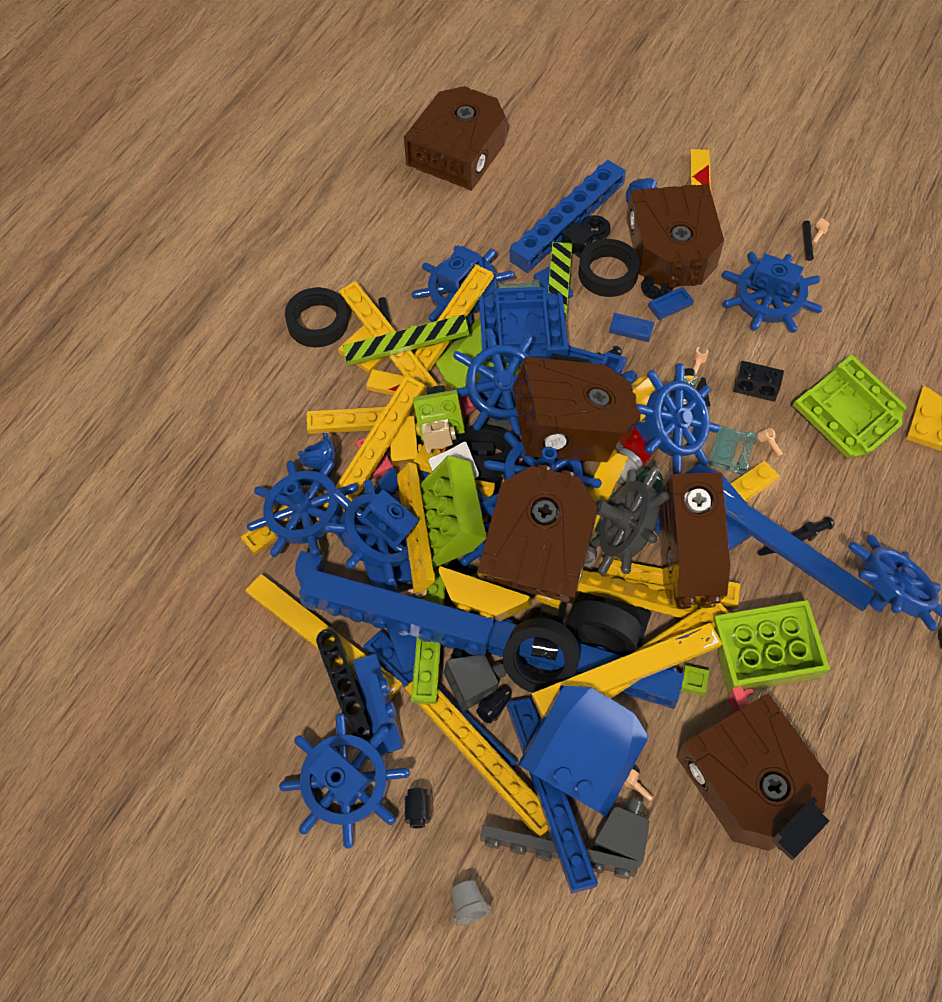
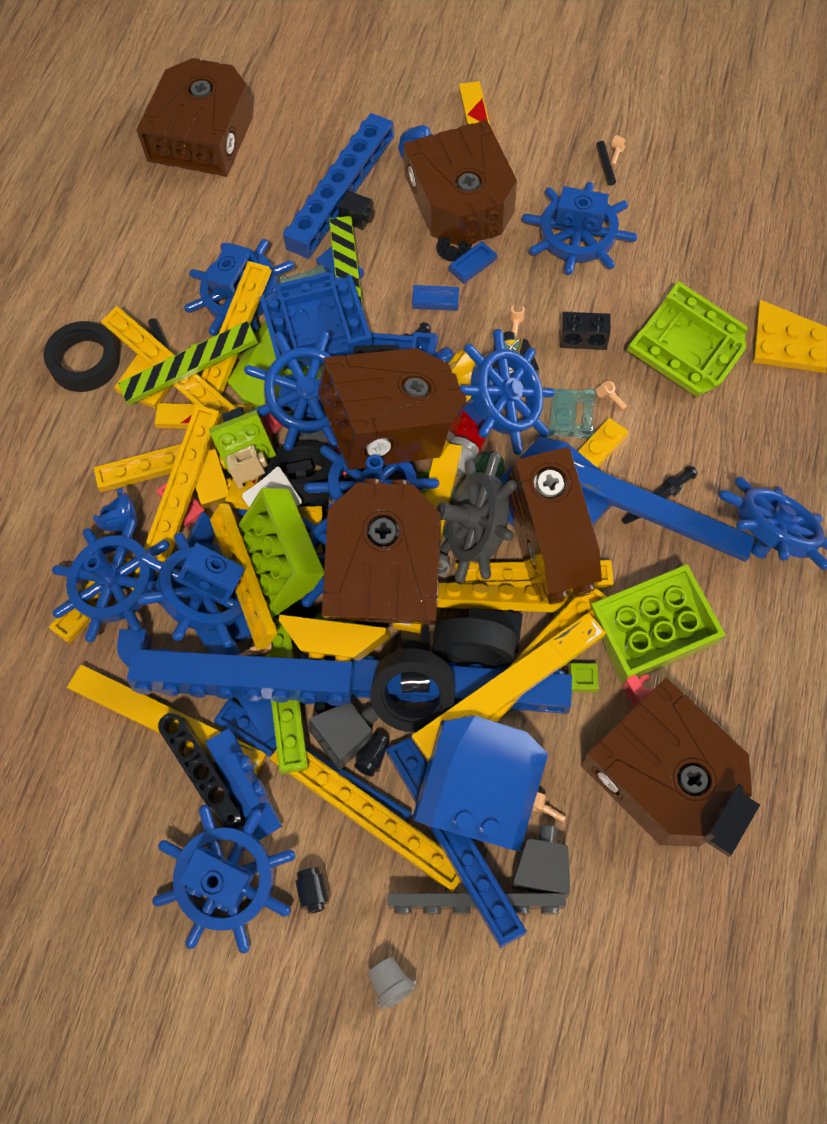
camera: 10 degrees left, 5 degrees up
(597, 222) = (373, 186): black gear -> none
(608, 248) = (397, 213): black tyre -> none

